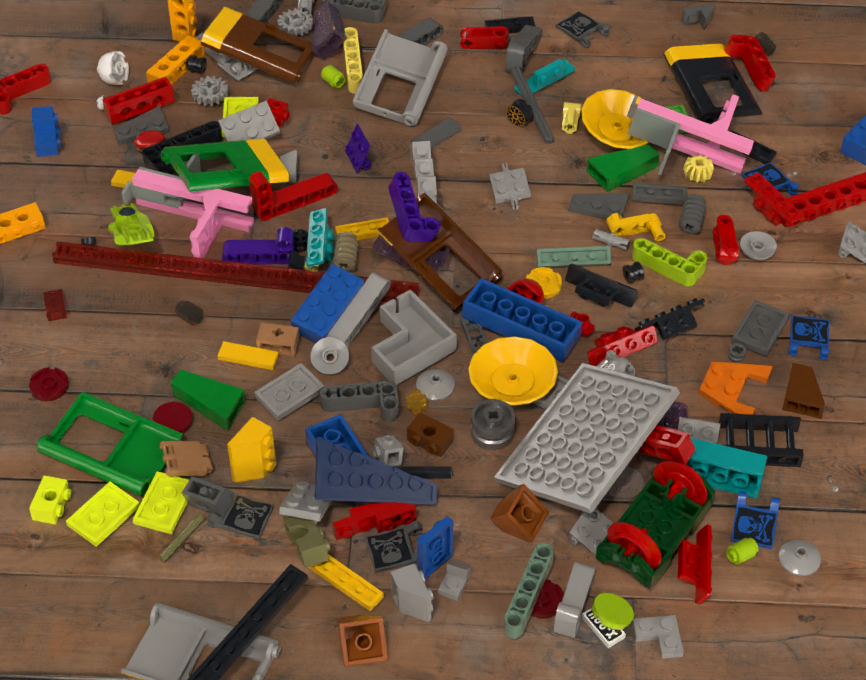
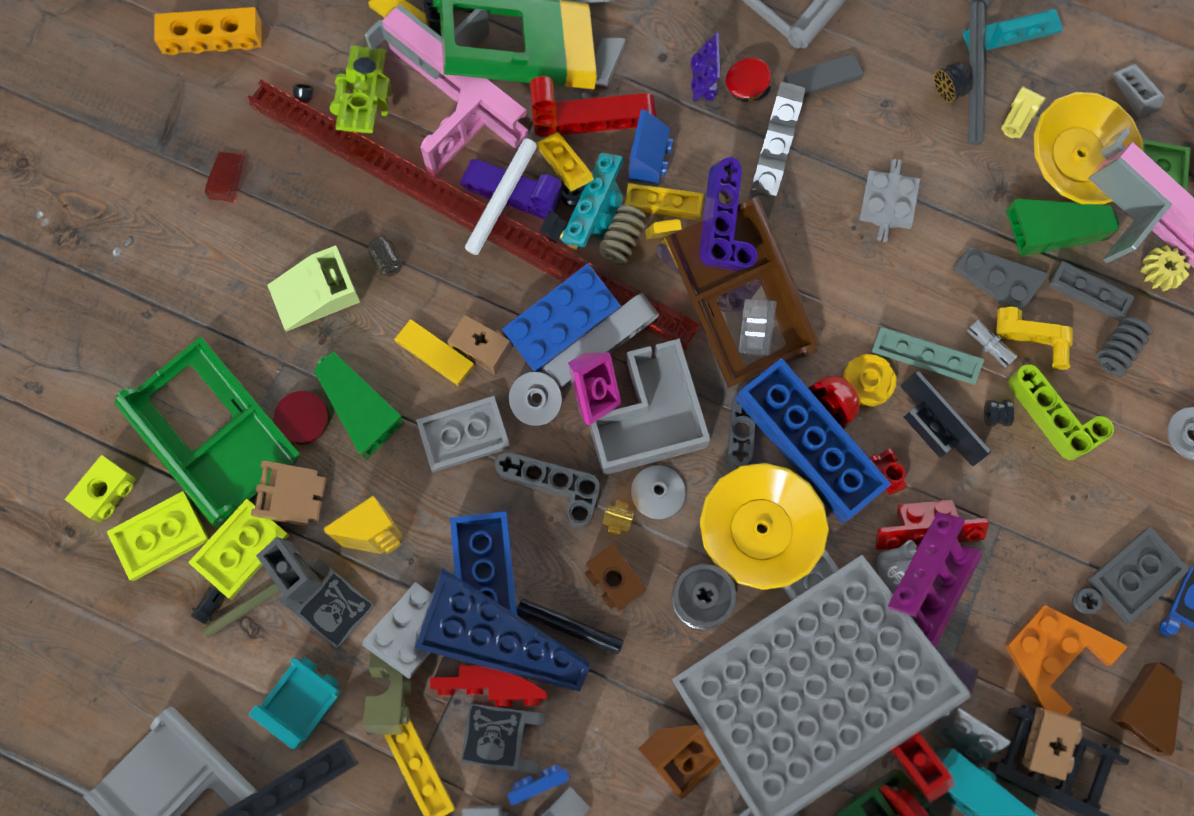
camera: 20 degrees right, 25 degrees up
(48, 384) = (171, 301): dark red tile -> none
(149, 342) = (313, 289): none -> yellowish green slope
(156, 546) = (207, 605): none -> black pin
(246, 572) = (297, 703): none -> teal panel
(255, 252) = (500, 196): none -> white axle
(298, 225) = (564, 161): none -> yellow tile
(341, 202) = (649, 149): none -> blue slope
(365, 327) = (594, 385): none -> dark pink slope
(370, 235) = (663, 228): none -> yellow tile
(388, 149) = (749, 79): none -> red piece
(388, 450) = (548, 586): light grey brick -> none
(458, 271) = (757, 327): none -> clear brick
(623, 348) = (936, 577): none -> magenta fence
(638, 86) = (1141, 105): none -> light grey slope
(675, 322) = (1021, 516): black bracket -> none
(725, 240) = (1151, 408): red piece -> none
(747, 420) = (1053, 727): none -> medium nougat brick

